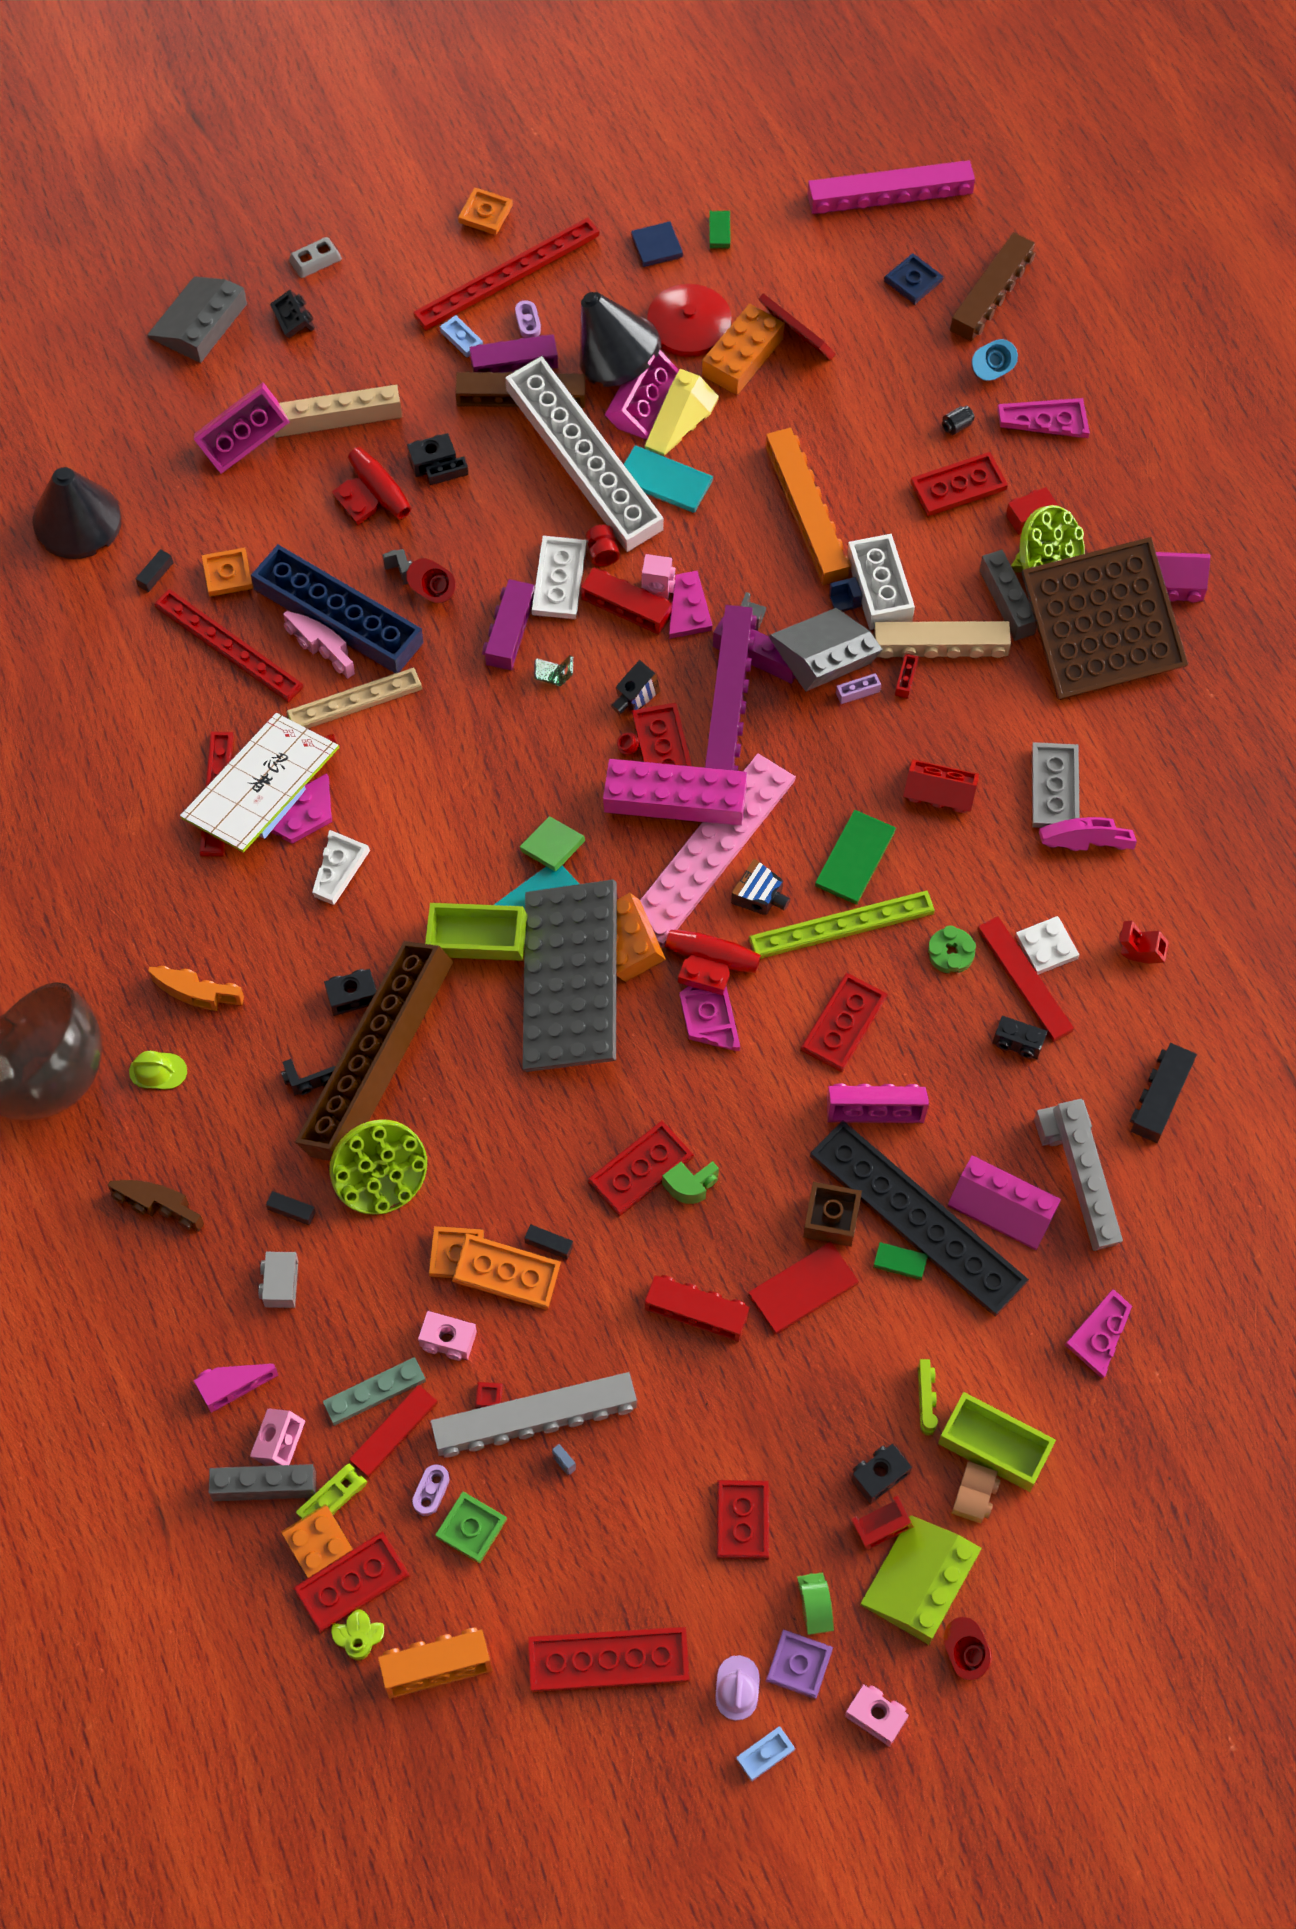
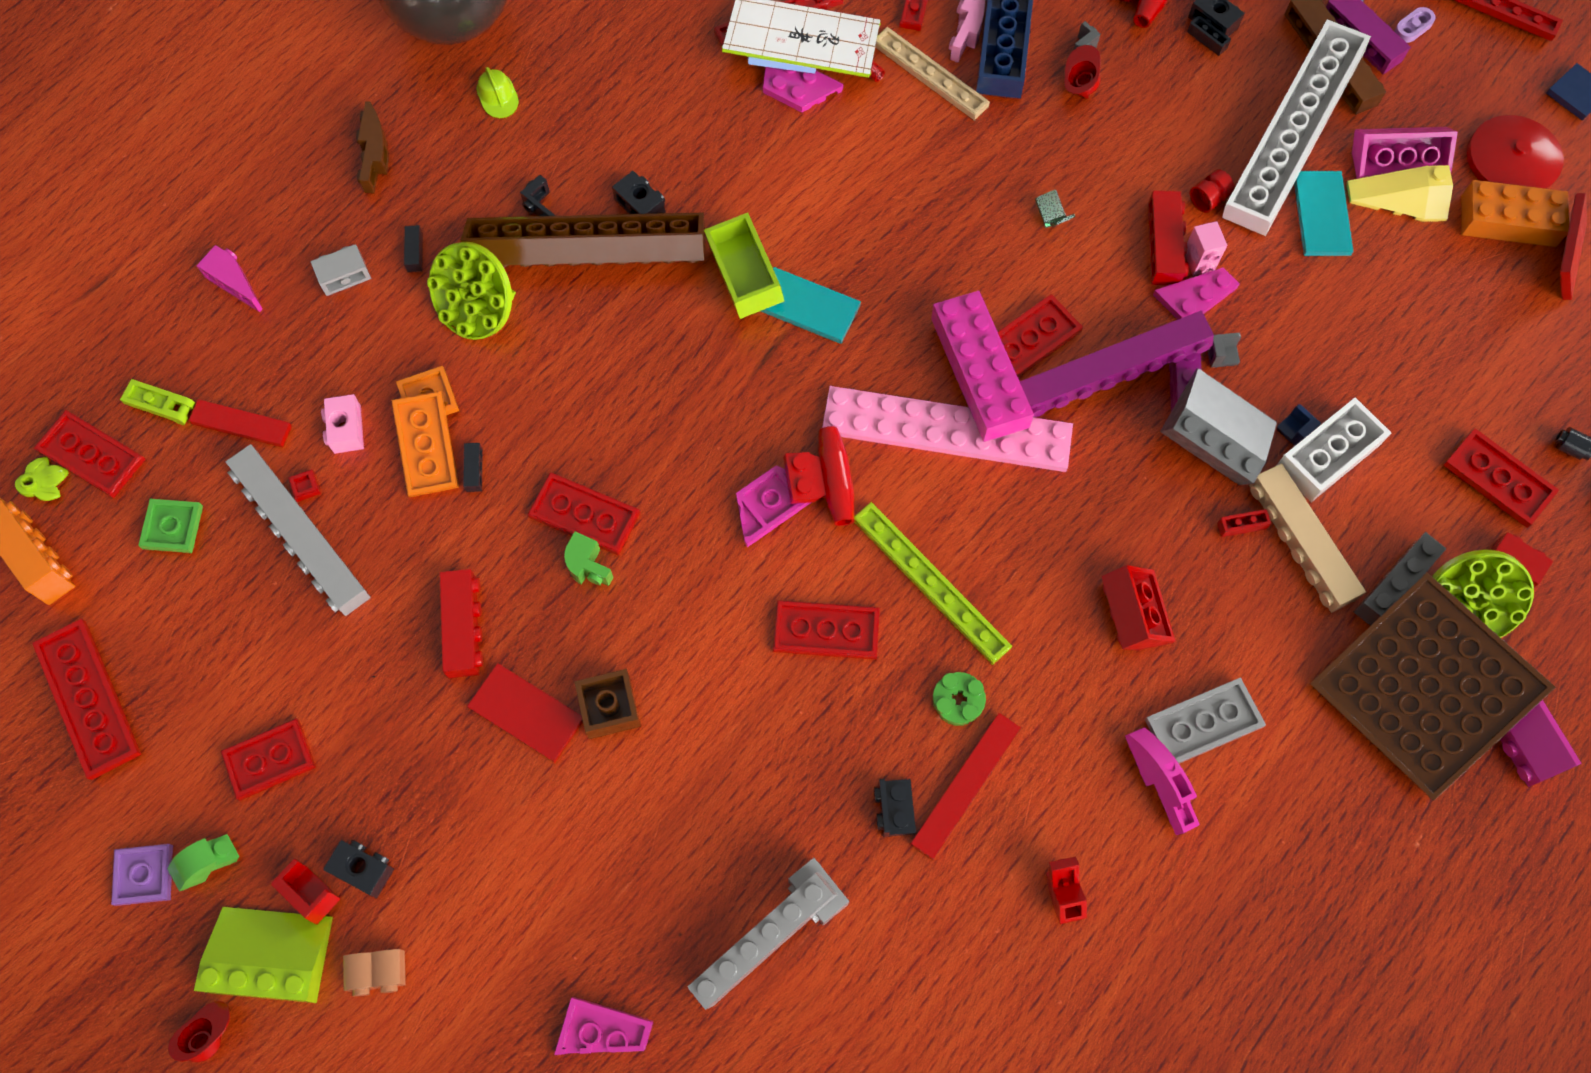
camera: 65 degrees right, 5 degrees up
(186, 987) = (581, 82): orange slope -> none
(262, 1482) = (148, 341): dark grey brick -> none
(277, 1438) = (190, 333): bright pink brick -> none
(316, 1540) = (110, 407): orange plate -> none
(338, 867) = (758, 135): white wing -> none
(374, 1391) = (272, 391): sand green plate -> none
(431, 1491) = (195, 477): lavender plate -> none
(509, 624) = (1080, 154): magenta brick -> none
(552, 843) = (873, 290): bright green tile -> none
(559, 577) = (1159, 170): white plate -> none
(563, 1459) = (262, 573): sand blue tile -> none
(570, 976) = (740, 362): dark grey plate -> none
(614, 341) = (1437, 89): black cone -> none
(627, 743) = (1015, 306): red plate -> none
(636, 688) = (1074, 285): black torso -> none
(636, 941) = (807, 393): orange brick -> none
(737, 1687) = (101, 826): lavender piece -> none
(759, 890) = (924, 488): torso -> none
(765, 1753) = (39, 880): light blue plate -> none
(807, 507) = (1376, 347): orange brick -> none
(855, 857) = (1012, 562): green tile -> none
(858, 688) = (1201, 484): lavender piece -> none
(877, 1103) = (748, 694): dark pink slope -> none
(883, 1729) = (103, 955): bright pink brick -> none
(900, 1261) = (594, 793): green tile -> none
(919, 1218) = (645, 794): black plate -> none
(927, 1398) = (454, 880): lime plate -> none
(996, 1441) = (431, 970): lime piece -> none
(1004, 1202) = (700, 868): dark pink slope -> none
(1047, 945) = (1015, 792): white plate -> none
(1163, 1092) = (906, 984): black brick -> none

